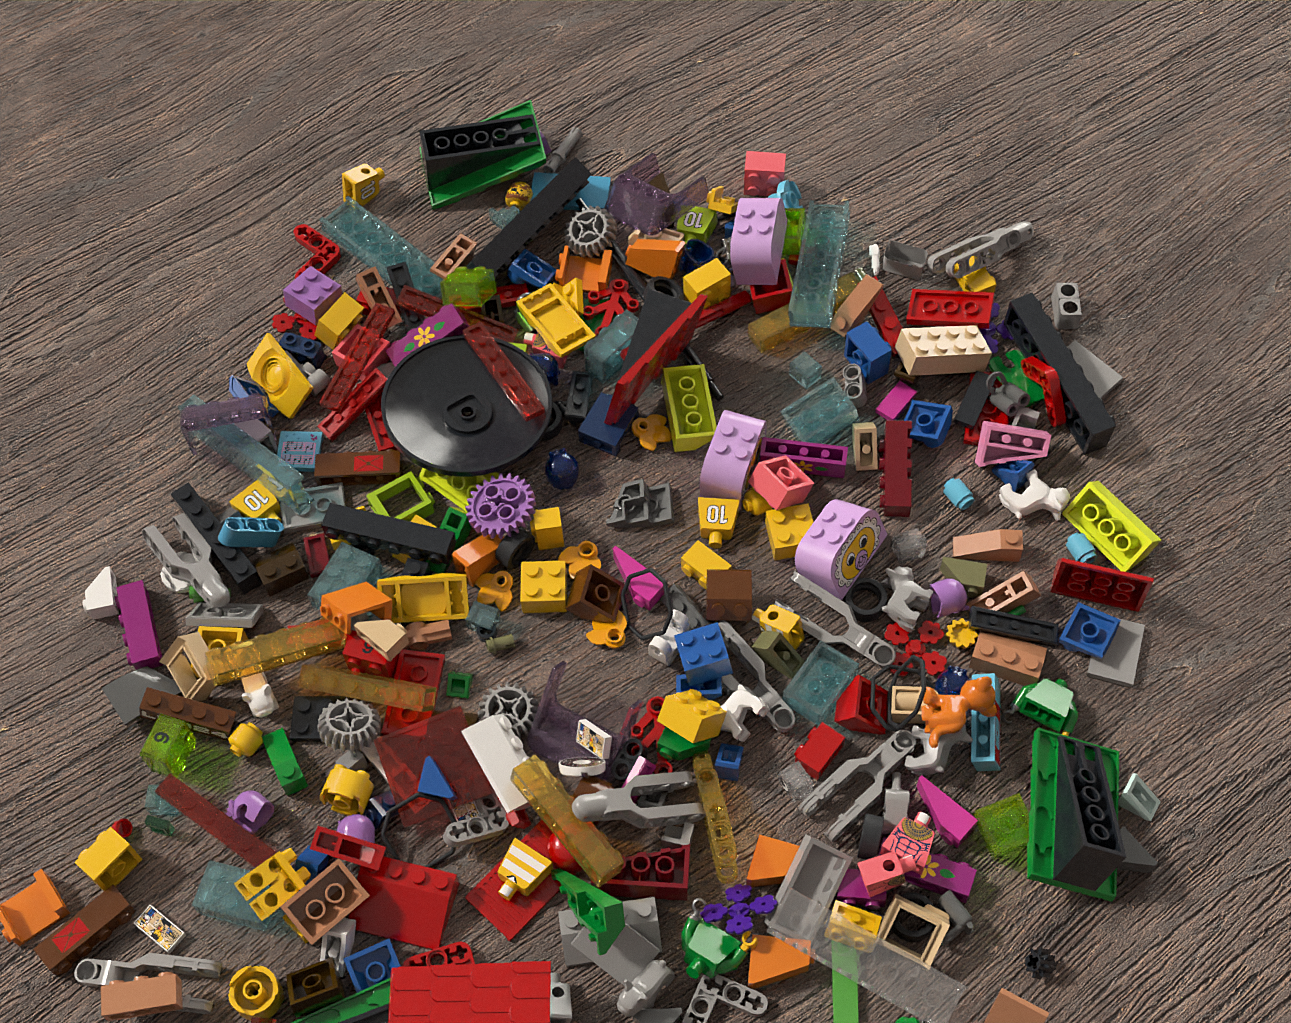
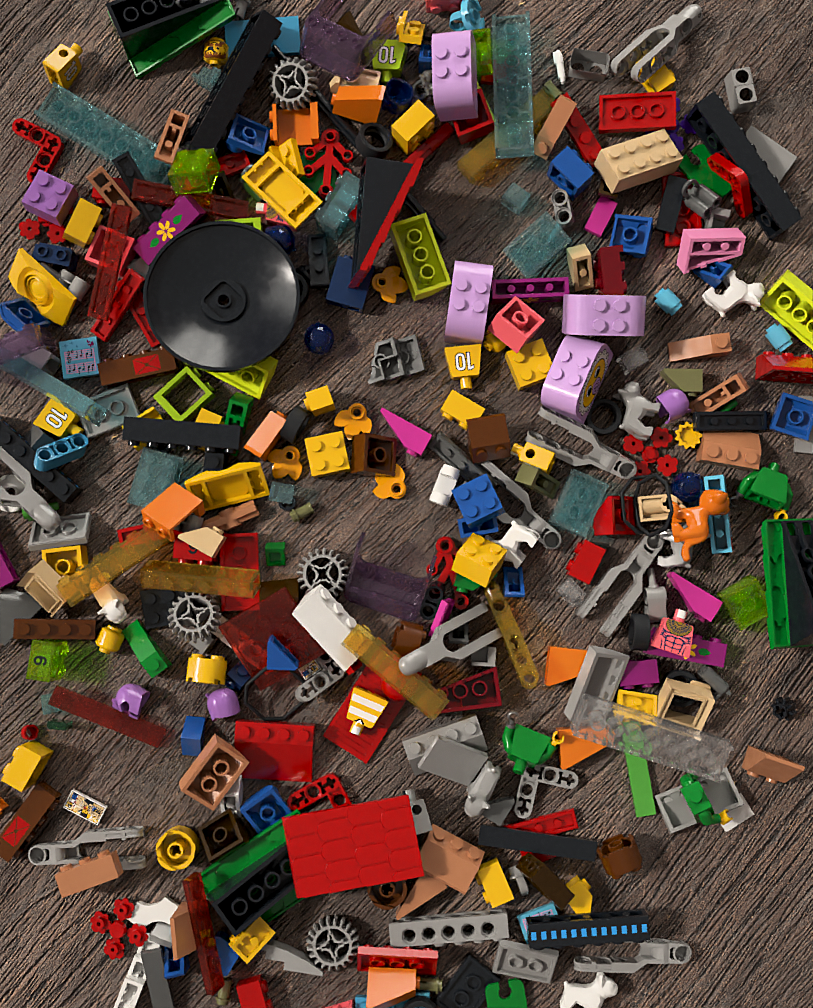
camera: 10 degrees left, 25 degrees up
(222, 900) = (140, 771): clear light blue brick -> none
(281, 569) = (95, 476): dark brown slope -> none
(281, 879) = (168, 765): yellow hips -> none
(317, 553) = (124, 457): dark red tile -> none
(347, 848) = (221, 725): red slope -> none
(490, 512) = (277, 375): medium lavender gear -> none
(503, 371) = (248, 258): clear red plate -> none
(580, 765) = (388, 617): white tile -> none
(593, 909) = (433, 744): green wedge -> none
(594, 739) = (400, 589): tile -> none
(668, 600) = (437, 453): black piece -> none
(739, 912) = (544, 711): dark purple plant -> none
(876, 873) = (650, 669): coral torso -> none
(881, 483) = (604, 315): none -> lavender brick

